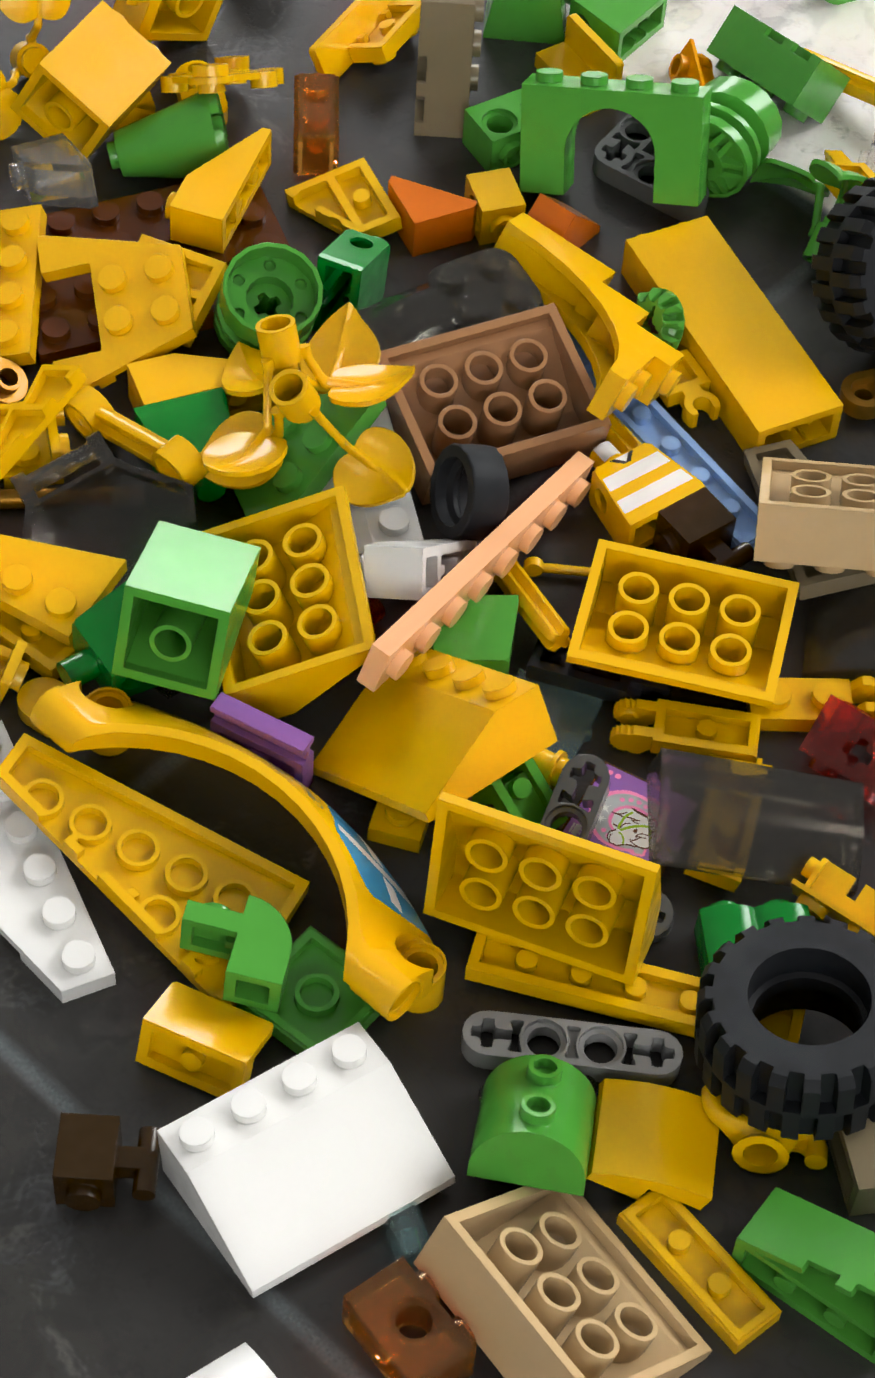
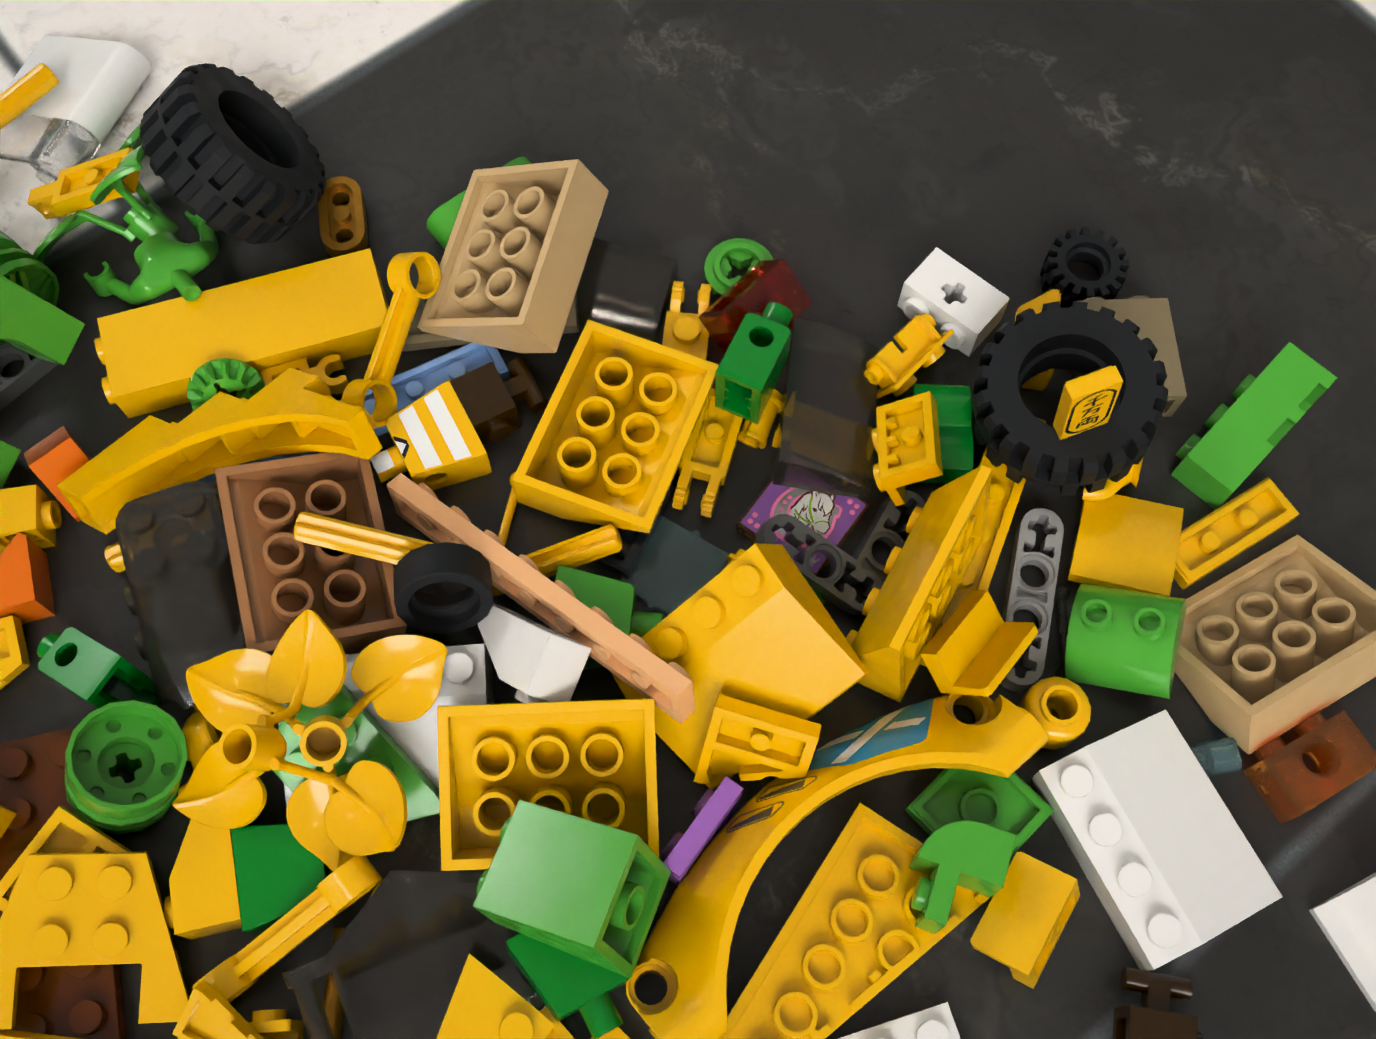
camera: 80 degrees left, 15 degrees up
(352, 755) = (756, 743): none -> yellow wing
(431, 1054) = (1059, 708): none -> yellow head
(494, 961) = (976, 647): none -> yellow panel
(506, 418) = (353, 538): none -> yellow axle
(714, 877) = (906, 444): none -> yellow bracket
(741, 431) = (394, 332): none -> yellow piece
(760, 965) = (1087, 401): none -> yellow tile
(779, 721) = (754, 362): none -> green torso
(780, 254) = (163, 266): none -> bright green piece

